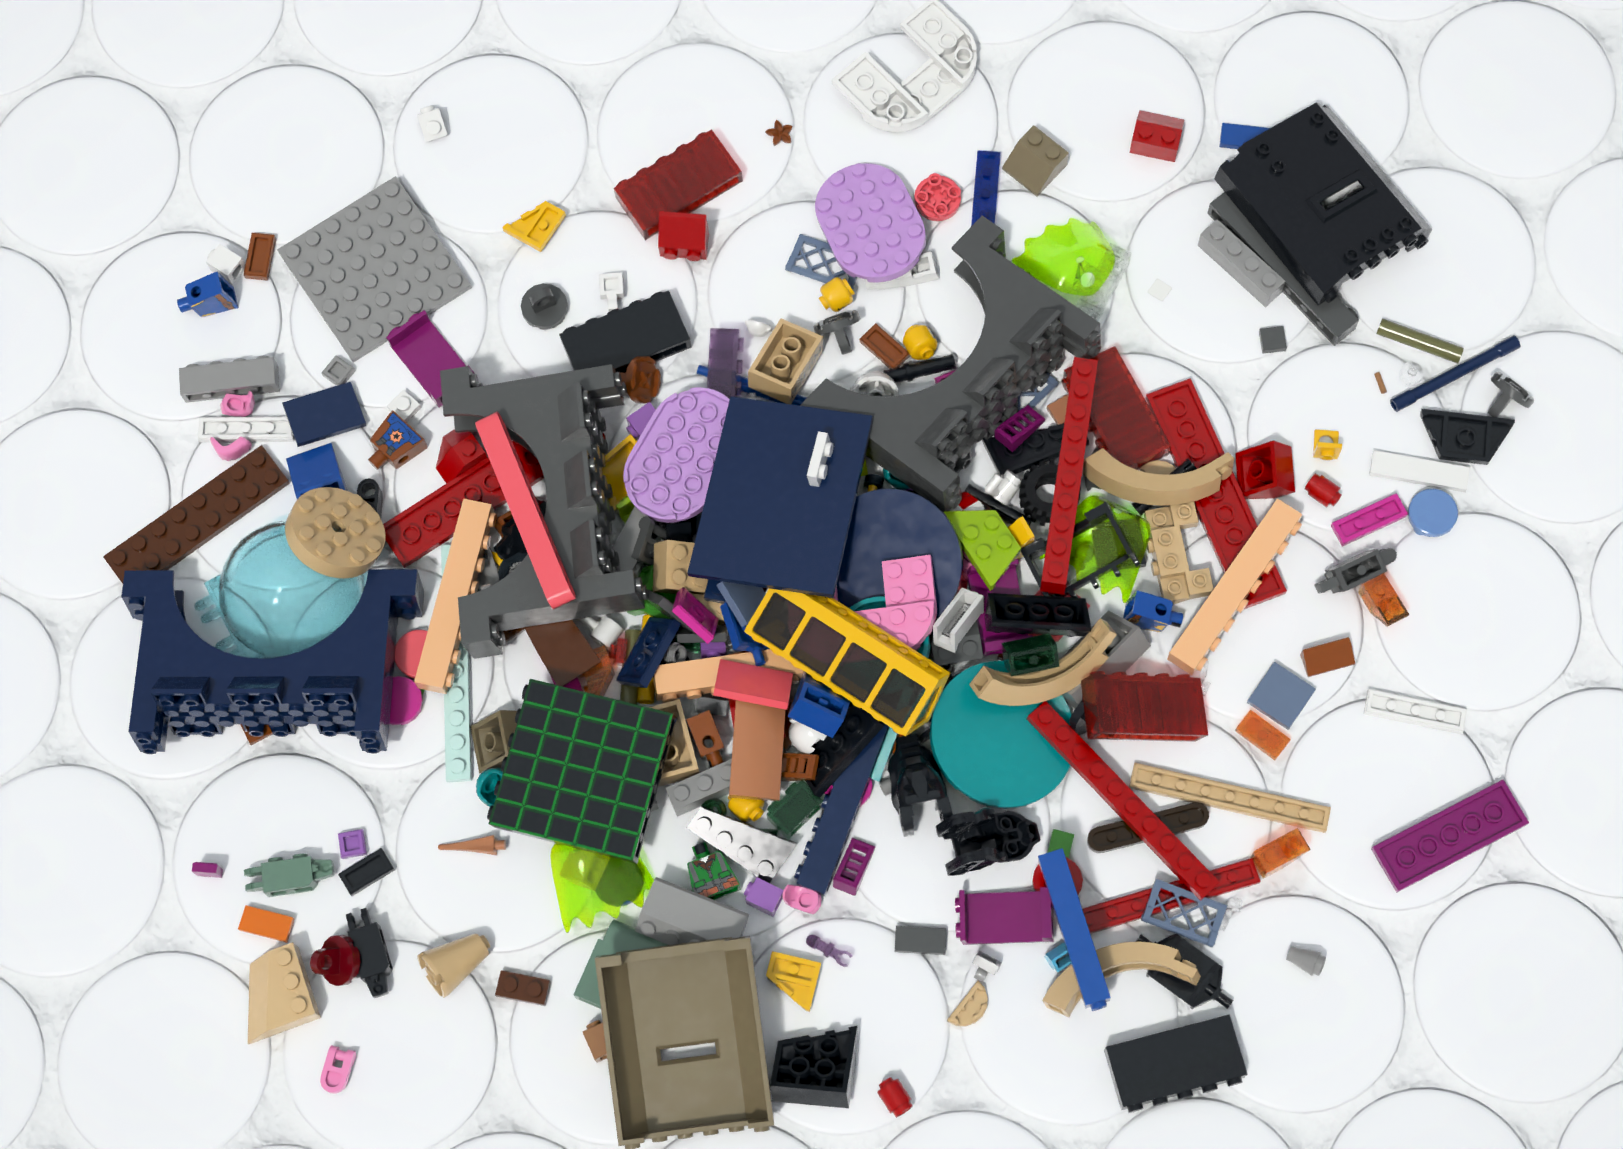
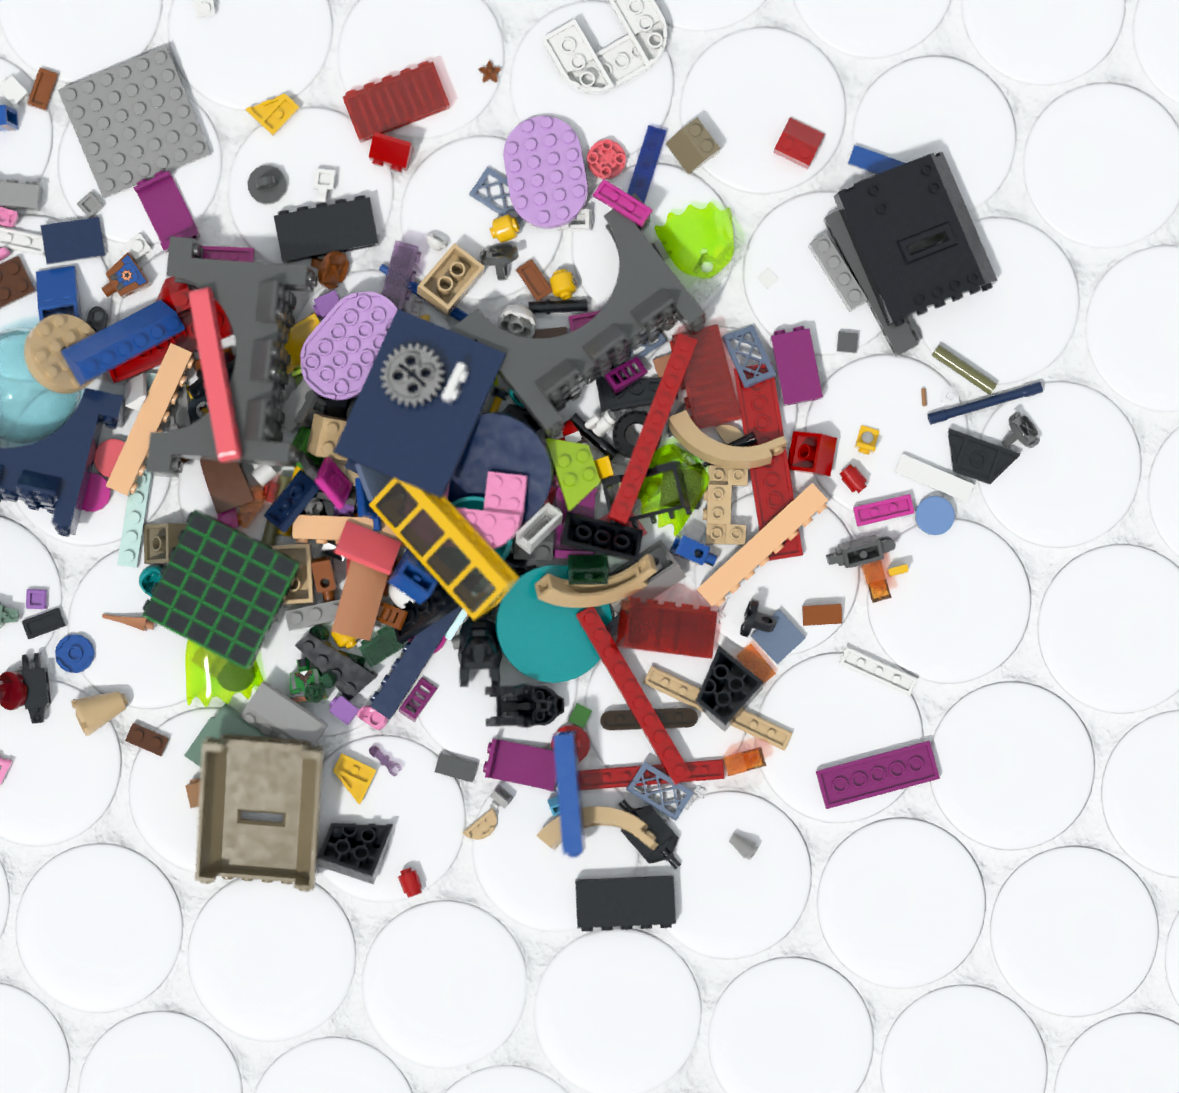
camera: 10 degrees right, 15 degrees up
(405, 506) = (122, 341): none -> blue slope
(412, 900) = (74, 653): none -> blue tile
(432, 567) = (136, 392): none -> white slope
(735, 863) = (326, 682): none -> clear green plate
(755, 479) = (424, 362): none -> light grey gear
(970, 227) = (622, 203): none -> dark pink tile
(1178, 395) = (758, 377): none -> sand blue window
(1221, 377) = (796, 366): none -> magenta panel
(1238, 767) = (727, 689): none -> black wedge
(1245, 676) = (756, 620): none -> black tile
(1407, 584) = (897, 570): none -> yellow tile

